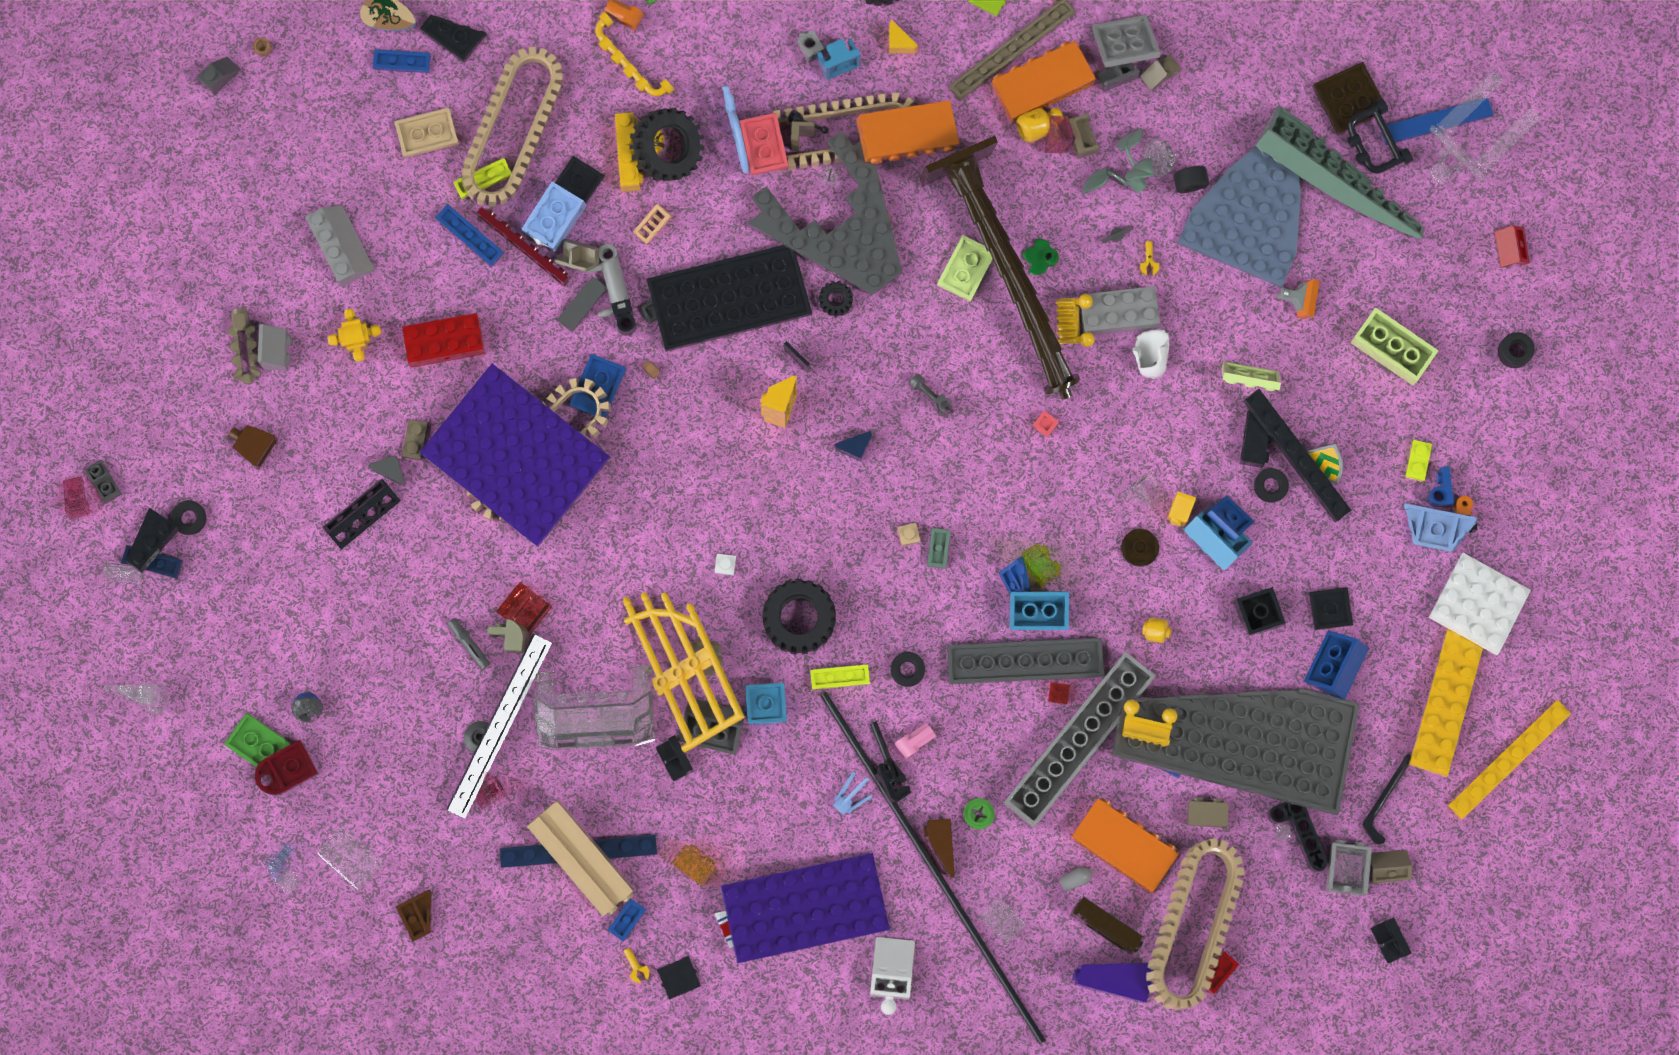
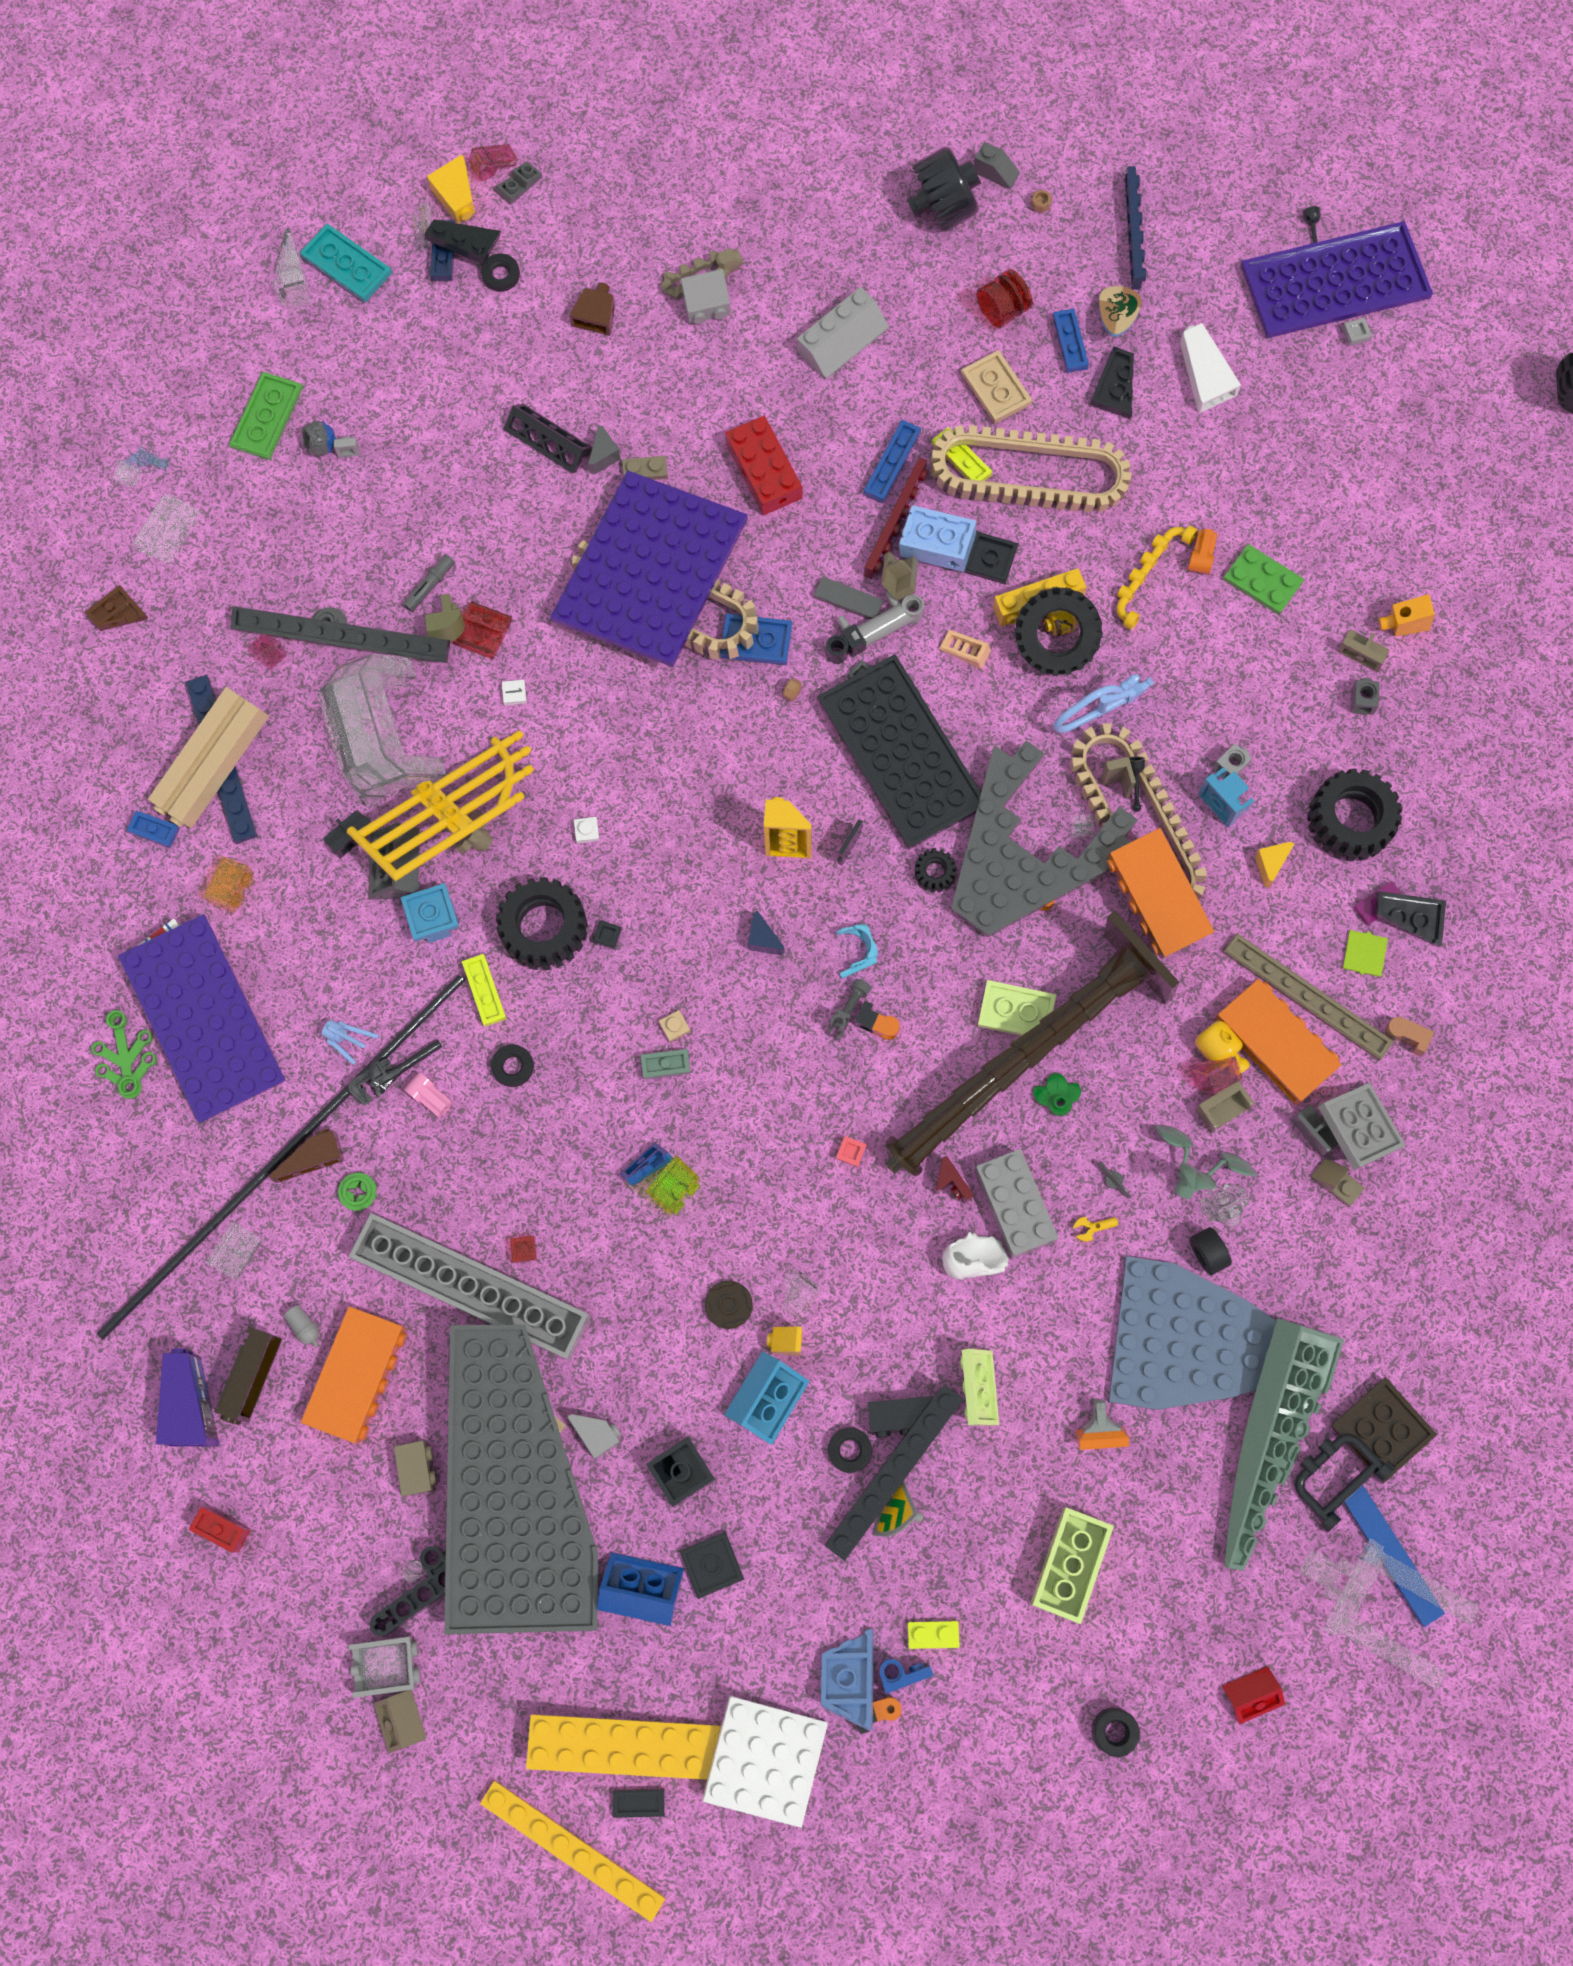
camera: 80 degrees right, 5 degrees down
(95, 538) = (453, 188): none -> yellow slope
(138, 649) = (346, 263): none -> teal plate
(235, 119) = (945, 188): none -> black piece
(286, 768) = (248, 437): dark red tile -> none
(320, 685) = (346, 447): none -> light grey plate
(351, 102) = (1004, 298): none -> clear red wheel
(354, 335) = (743, 374): yellow piece -> none
(587, 595) = (514, 692): none -> white tile
(635, 965) = (102, 854): yellow bar -> none
(678, 977) = (100, 903): black piece -> none
(764, 144) = (1093, 737): coral plate -> none
(818, 569) = (607, 934): none -> black tile
(820, 980) = (125, 1058): none -> bright green plant
(888, 365) = (864, 933): none -> medium azure helmet
(892, 968) = (155, 1136): white slope -> none
(949, 377) = (877, 1024): none -> leg
(1025, 661) = (554, 1201): dark grey plate -> none
(1039, 610) = (613, 1198): dark azure slope -> none
(1069, 320) = (984, 1147): yellow gear -> none
(1084, 355) = (949, 1175): none -> dark red slope
(1147, 729) = (489, 1359): yellow gear -> none
(1156, 630) = (629, 1349): yellow head -> none
(1215, 670) = (596, 1434): none -> light grey slope
(1217, 929) = (173, 1450): tan piece -> none
(1230, 517) = (792, 1406): blue plate -> none
(1368, 821) = (451, 1679): black piece -> none
(1390, 940) = (305, 1744): black panel -> none
(1487, 703) = (638, 1803): none -> black tile

